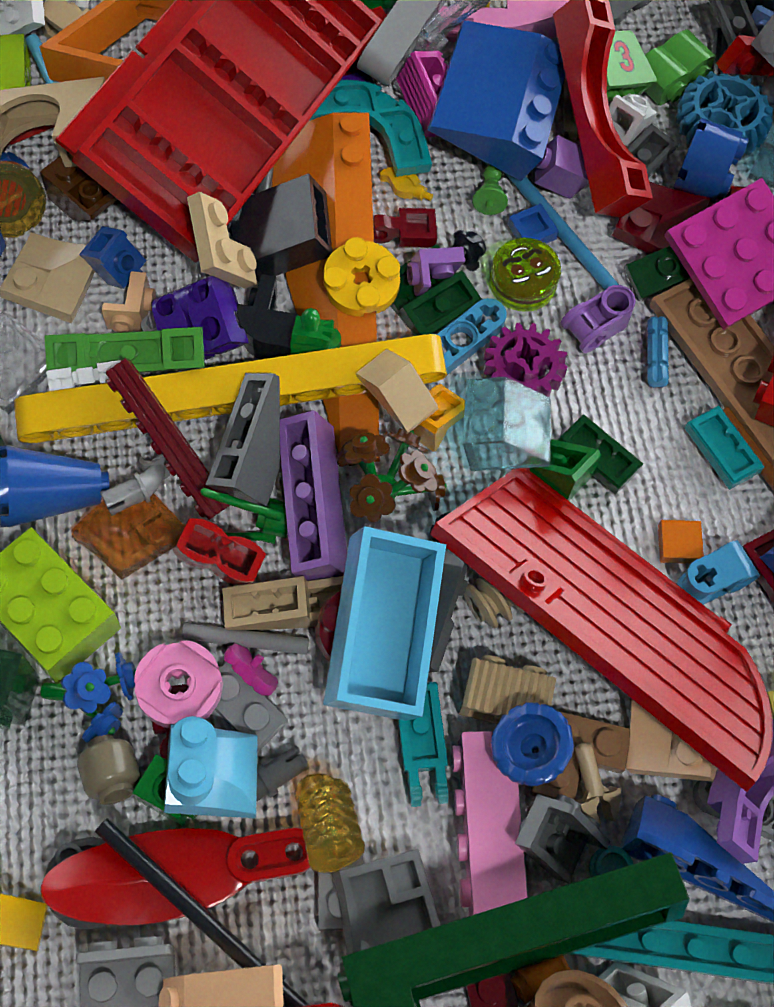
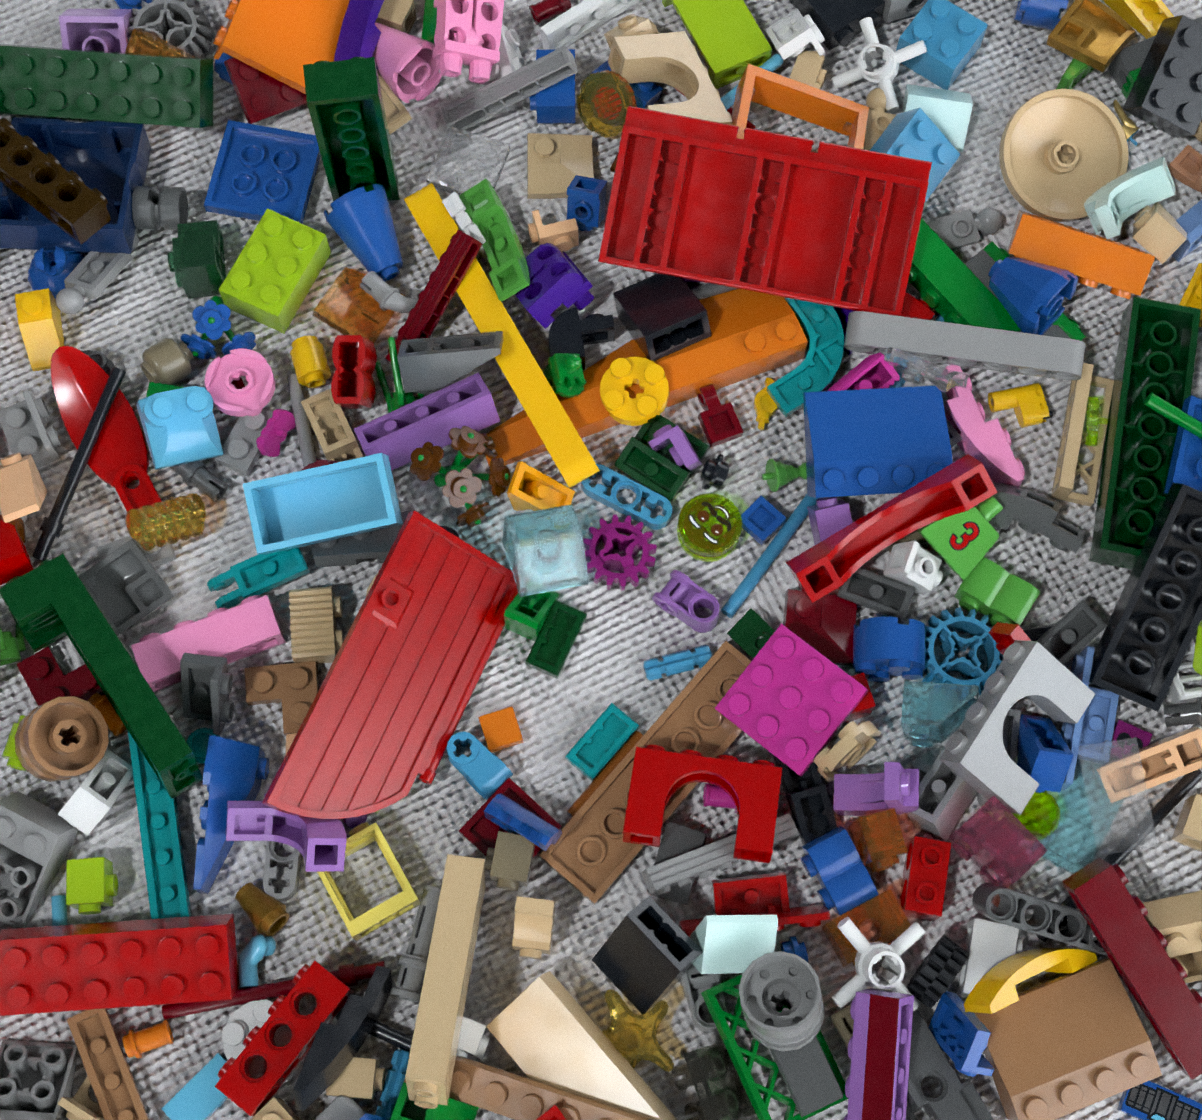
camera: 75 degrees right, 5 degrees up
(177, 603) = (310, 362): none -> yellow brick
(215, 250) = (599, 262): tan plate -> none
(398, 389) = (527, 447): tan slope -> none
(524, 731) = (264, 644): blue hair -> none
(595, 791) = (259, 711): tan bar -> none

